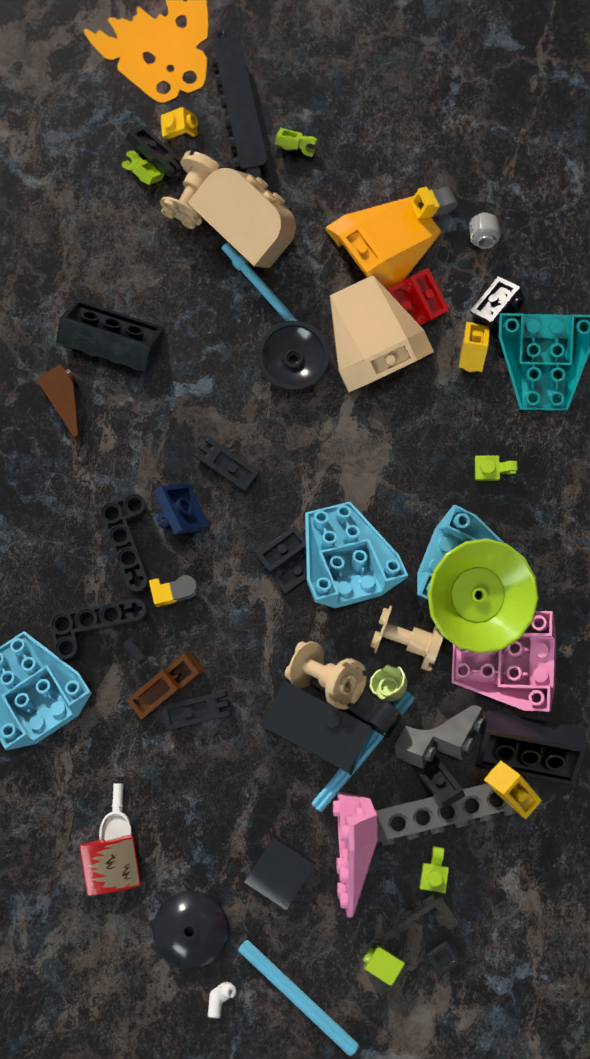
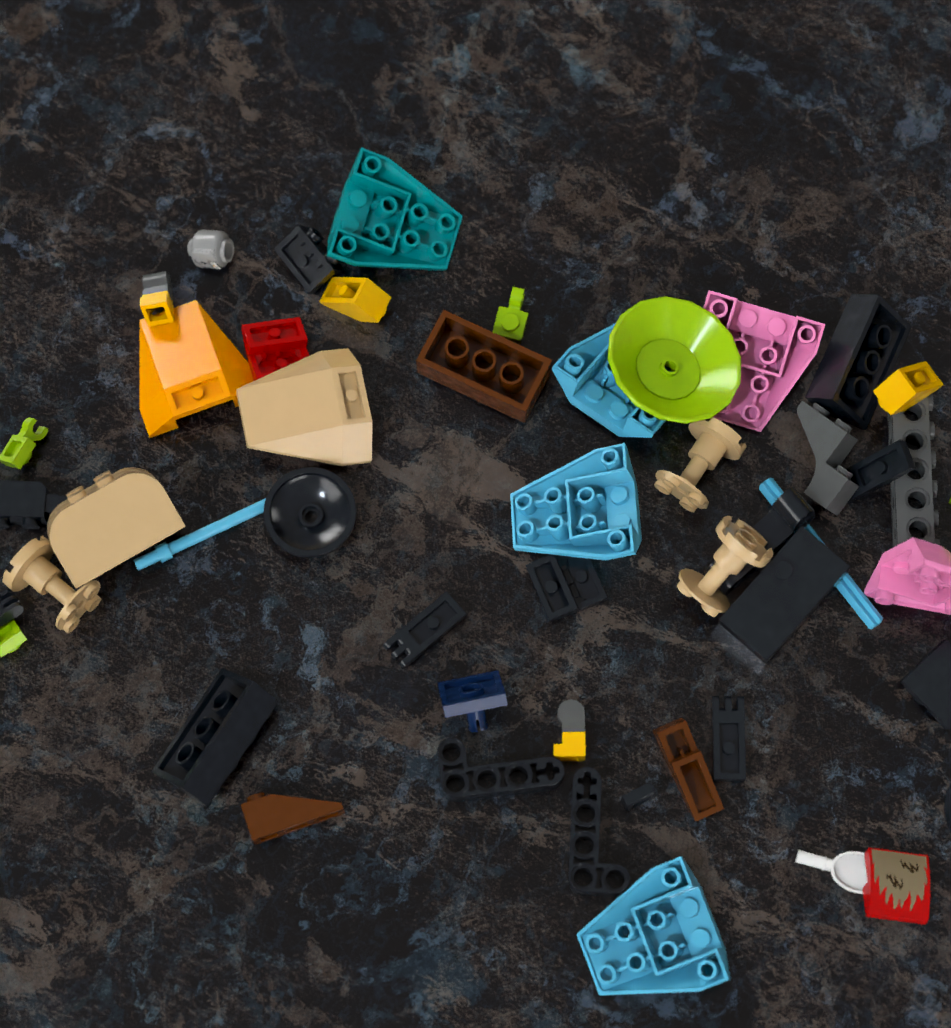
camera: 75 degrees left, 5 degrees down
(388, 683) = (747, 500): yellowish green hair -> none
(444, 454) = (484, 366): none -> reddish brown brick

